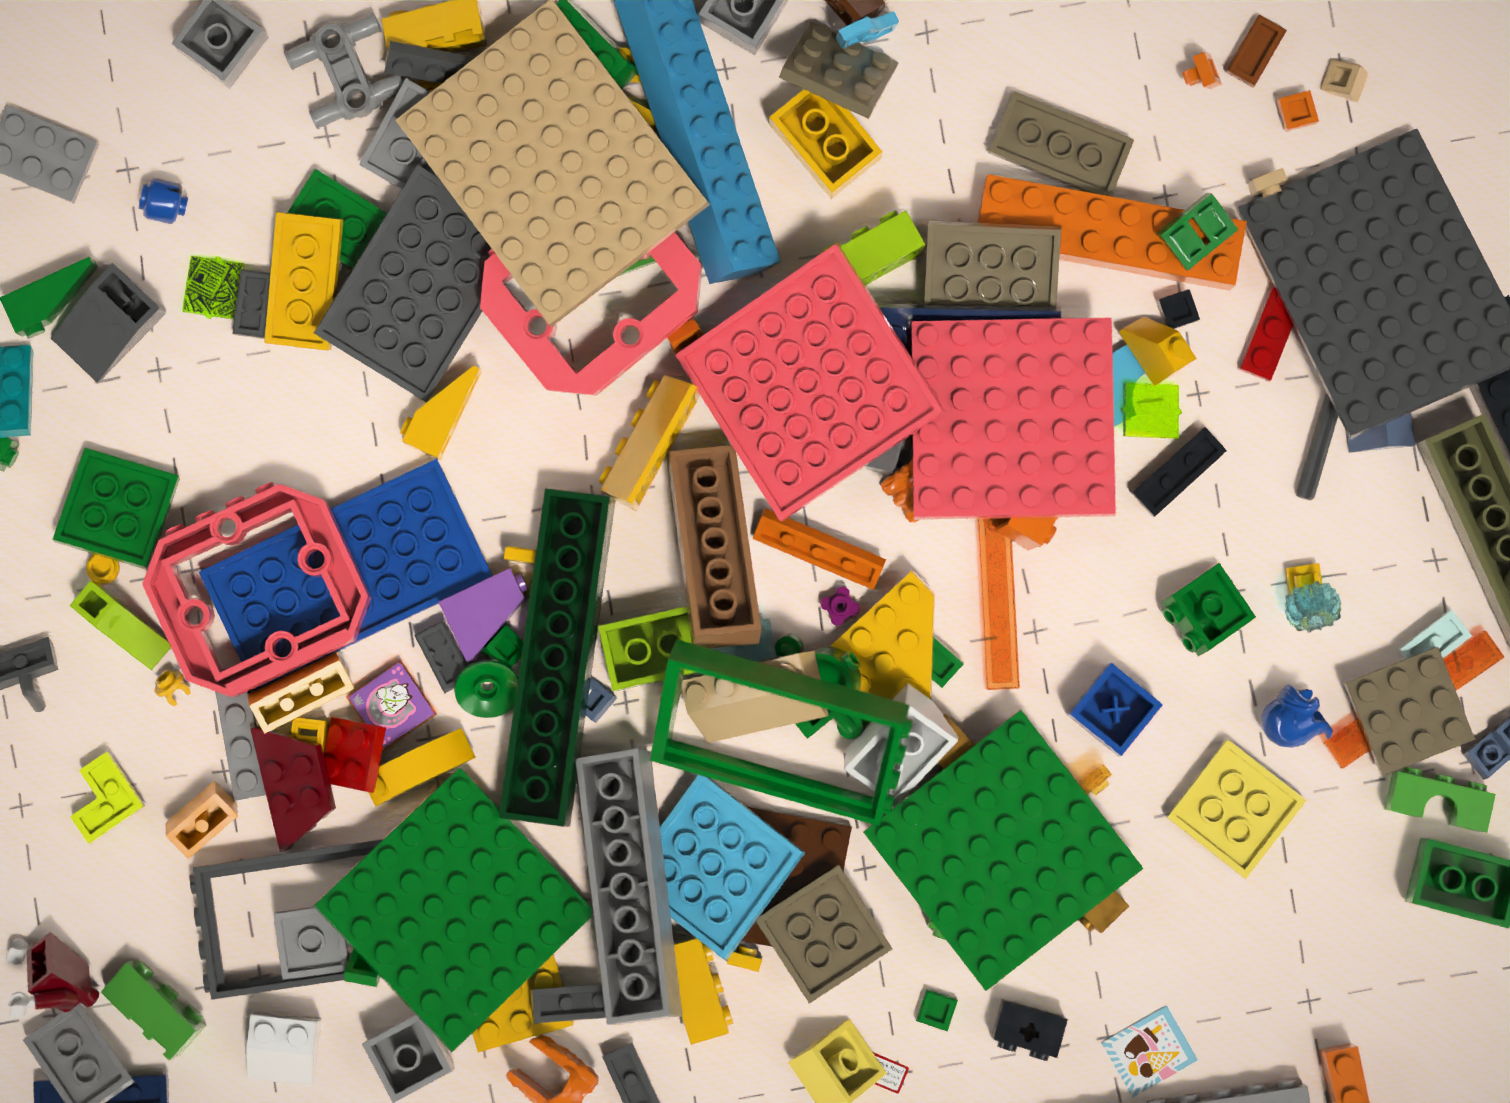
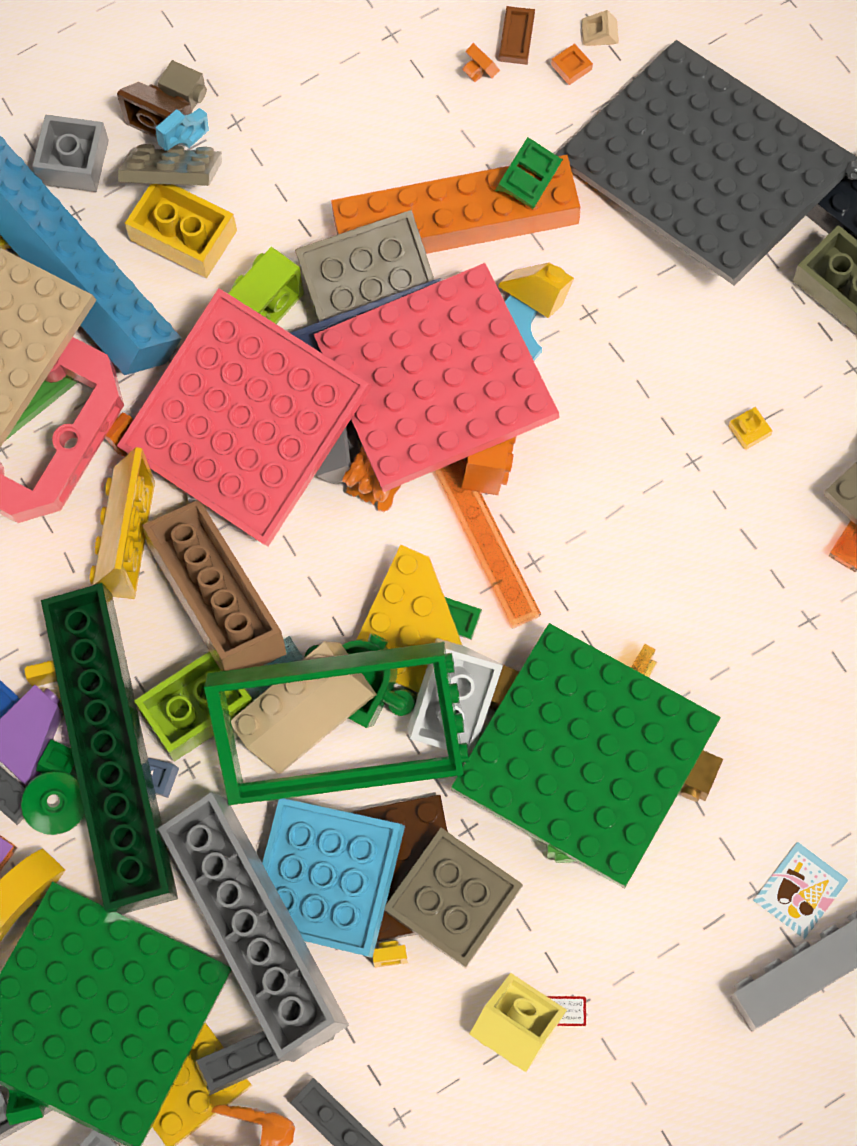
camera: 20 degrees left, 15 degrees down
(699, 992) = (359, 1001): yellow brick -> none
(819, 549) = (311, 563): orange plate -> none
(849, 607) = (353, 614): magenta plate -> none
(936, 1010) = (588, 931): green tile -> none
(1049, 1030) = (695, 900): black brick -> none
(1060, 146) = (383, 161): dark tan plate -> none
(1114, 709) = (632, 594): blue brick -> none
(1150, 410) = (554, 339): clear neon green piece -> none
(1179, 309) = (542, 249): black plate -> none
(1179, 472) = (600, 379): black plate -> none
(1207, 610) = (676, 481): green plate -> none
(1236, 809) = (780, 640): light yellow plate -> none
(1268, 183) = (571, 125): tan plate -> none
(1268, 339) = (628, 247): red plate -> none
(1294, 718) = (793, 539): blue hair -> none
(1313, 607) = (767, 440): clear light blue gear -> none
(1318, 451) = (711, 313): dark grey axle -> none
(1391, 435) = (758, 284): sand blue slope -> none

